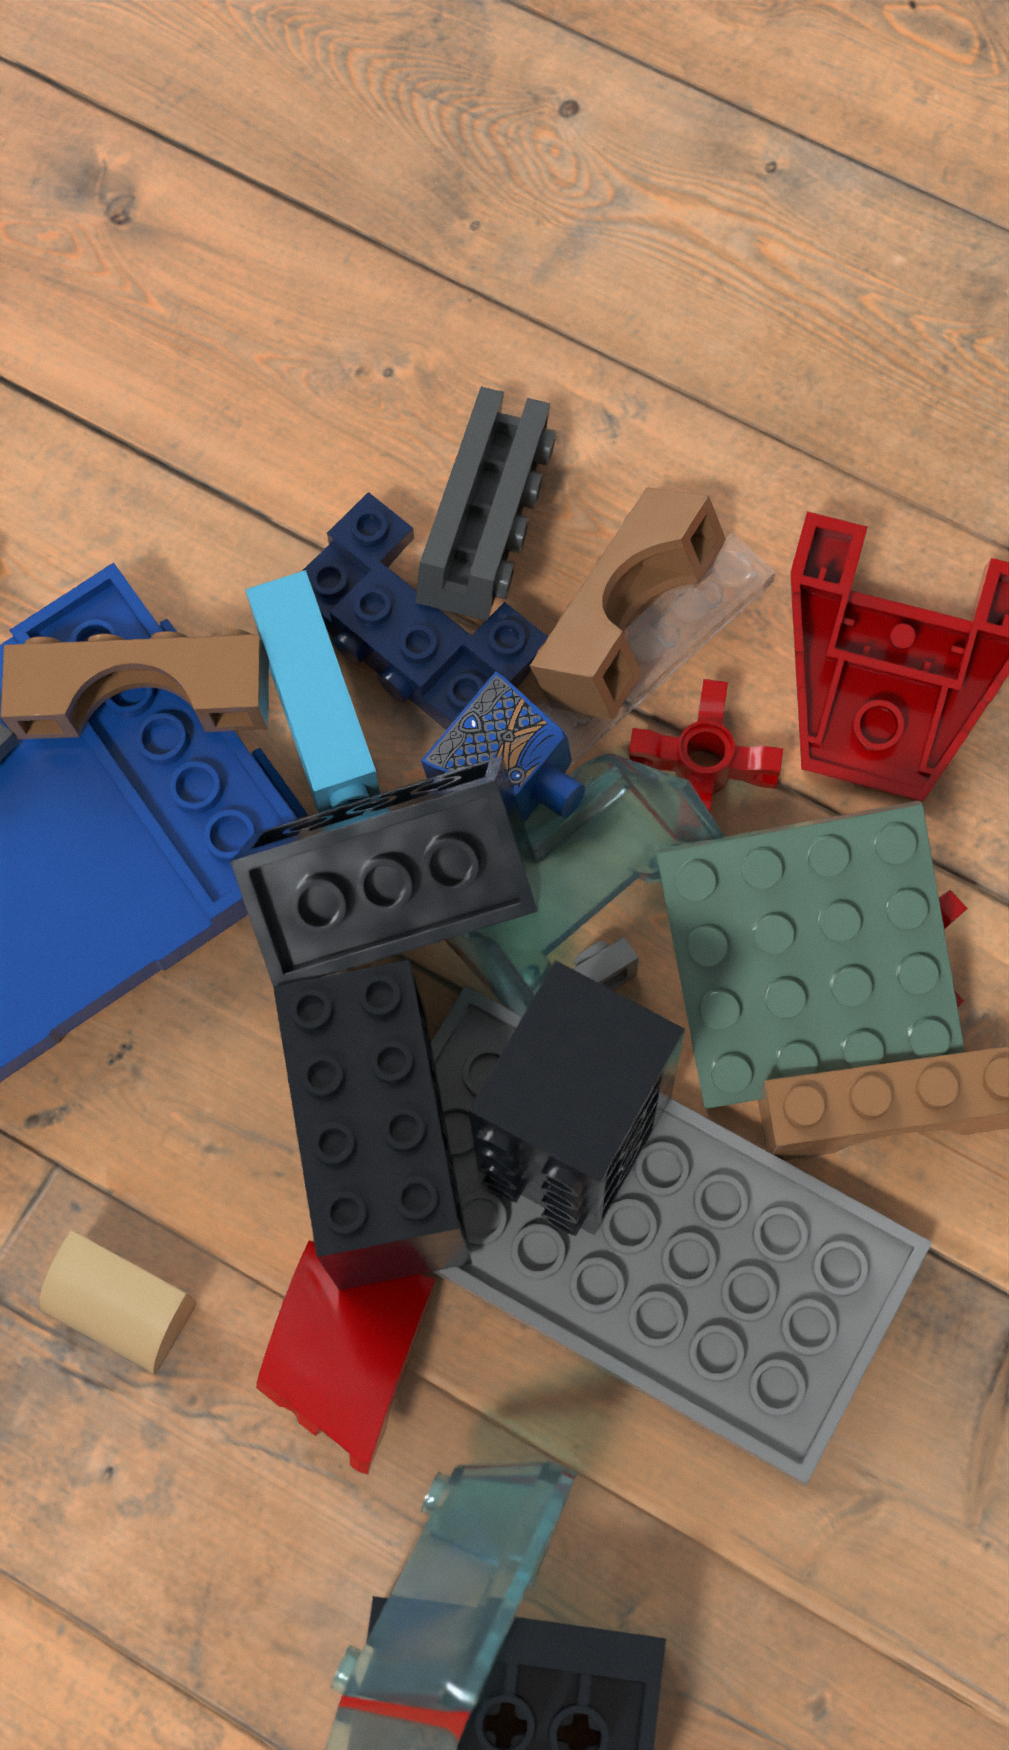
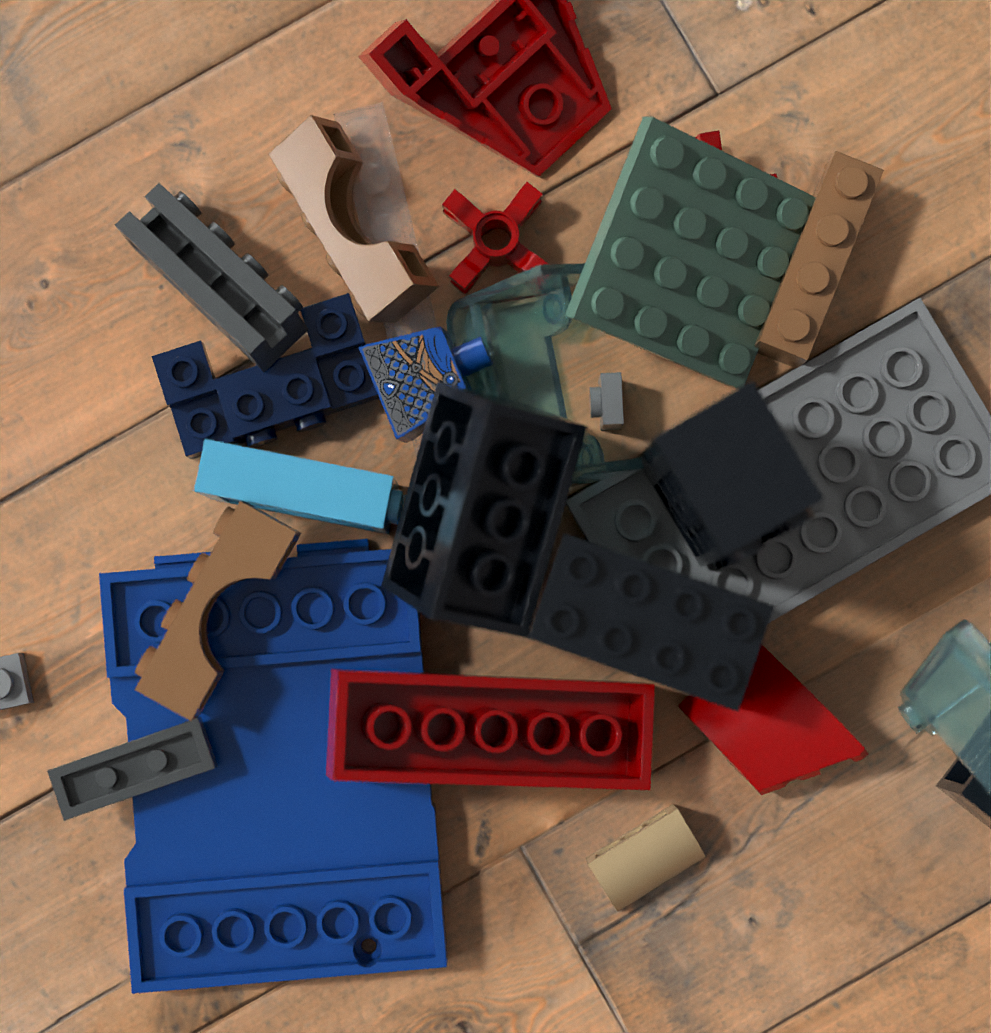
camera: 60 degrees left, 15 degrees up
(160, 1033) = (489, 730): none -> red brick

